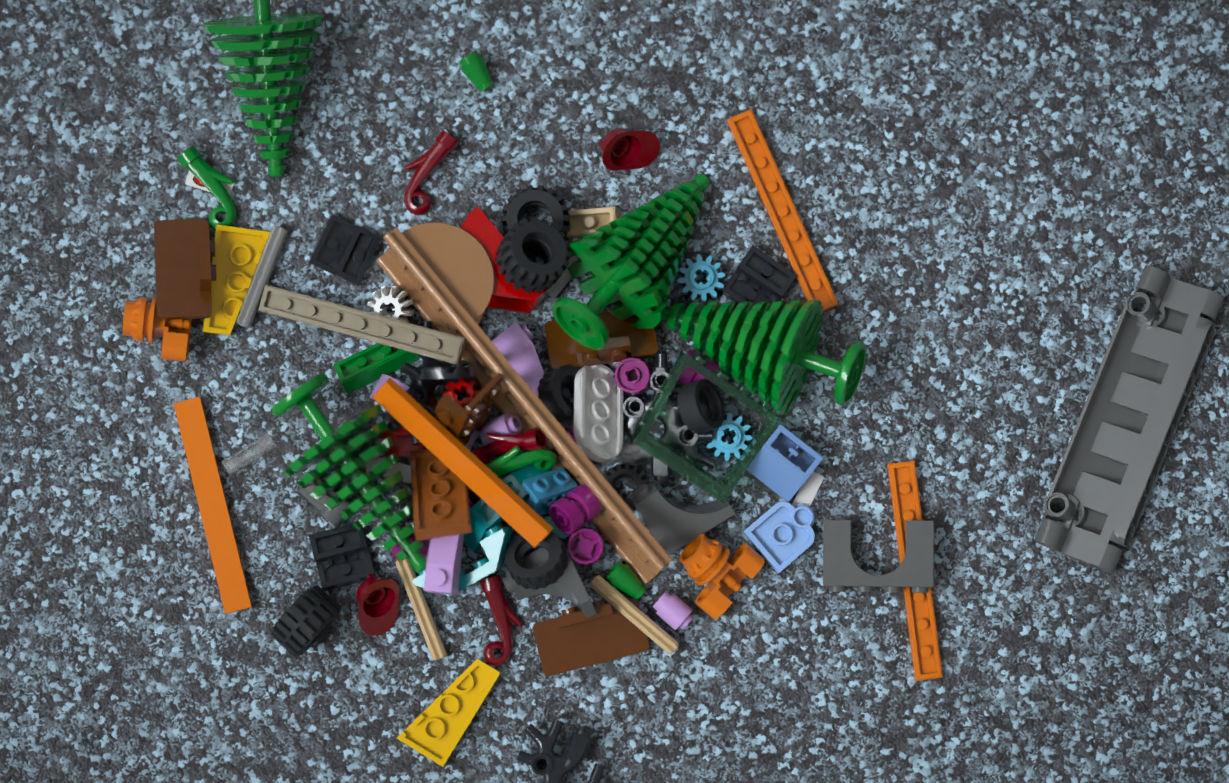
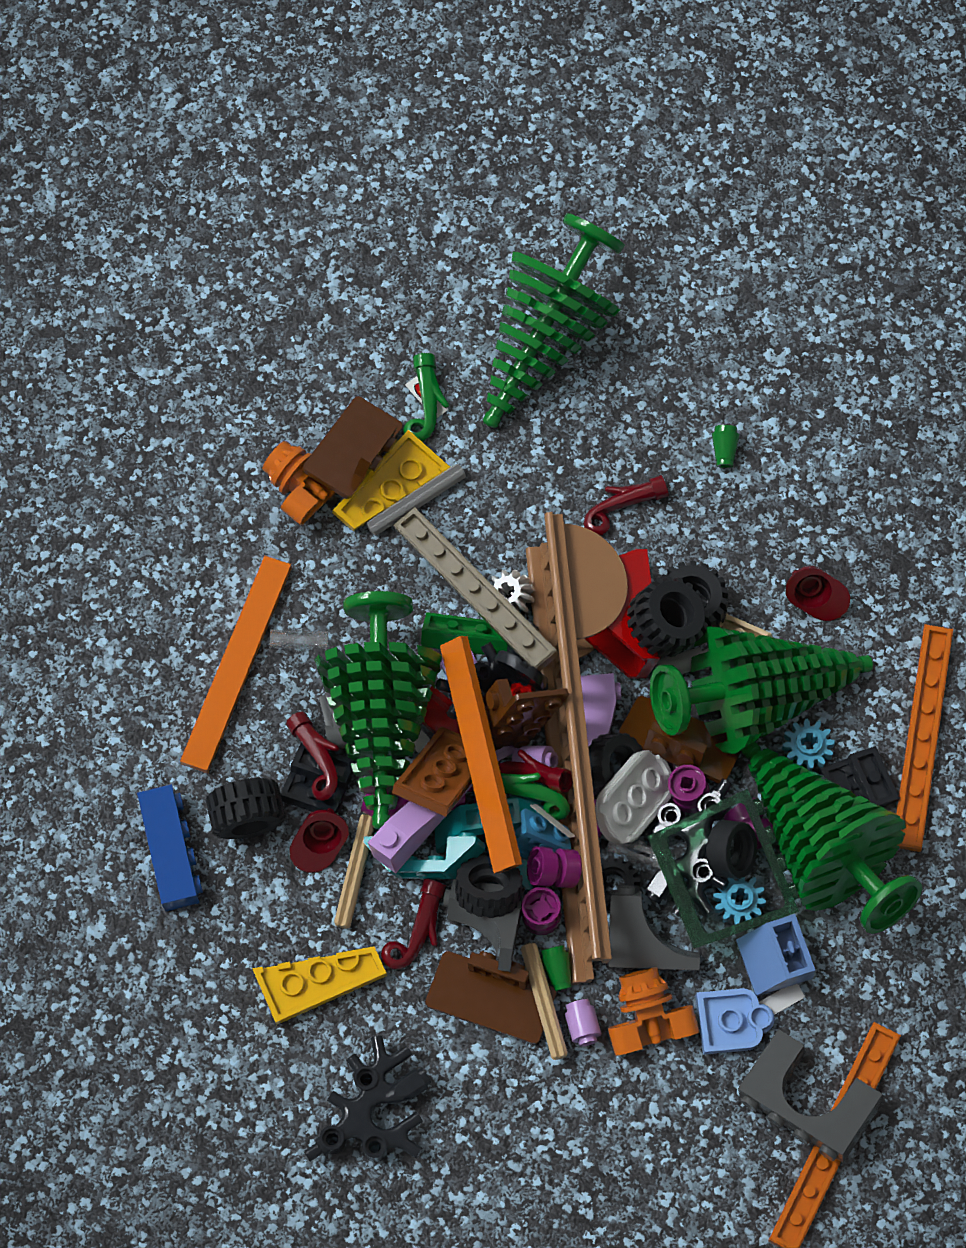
camera: 35 degrees right, 15 degrees down
(265, 687) = (168, 847): none -> blue brick
(324, 531) = (317, 746): none -> dark red plant
(344, 249) = (504, 522): black slope -> none
(550, 474) = (552, 820): none -> white sticker

